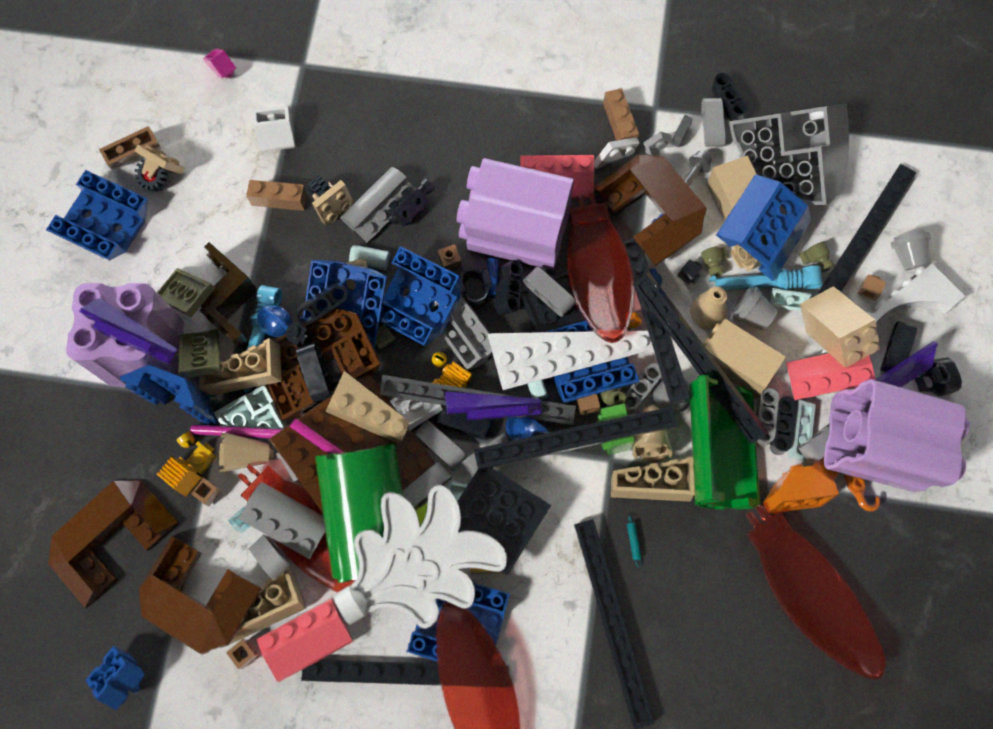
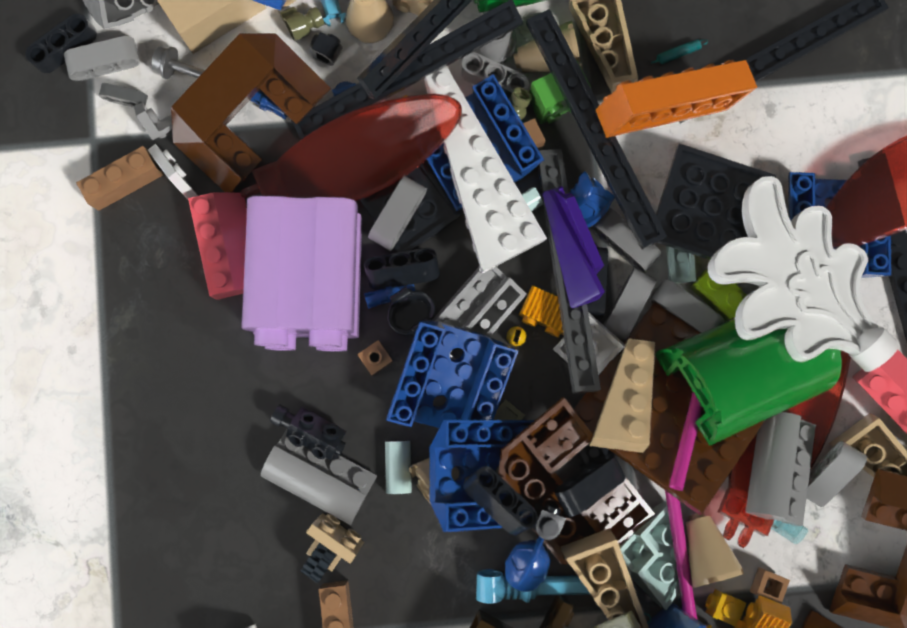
camera: 115 degrees left, 10 degrees up
(584, 505) = (675, 97): none -> orange brick

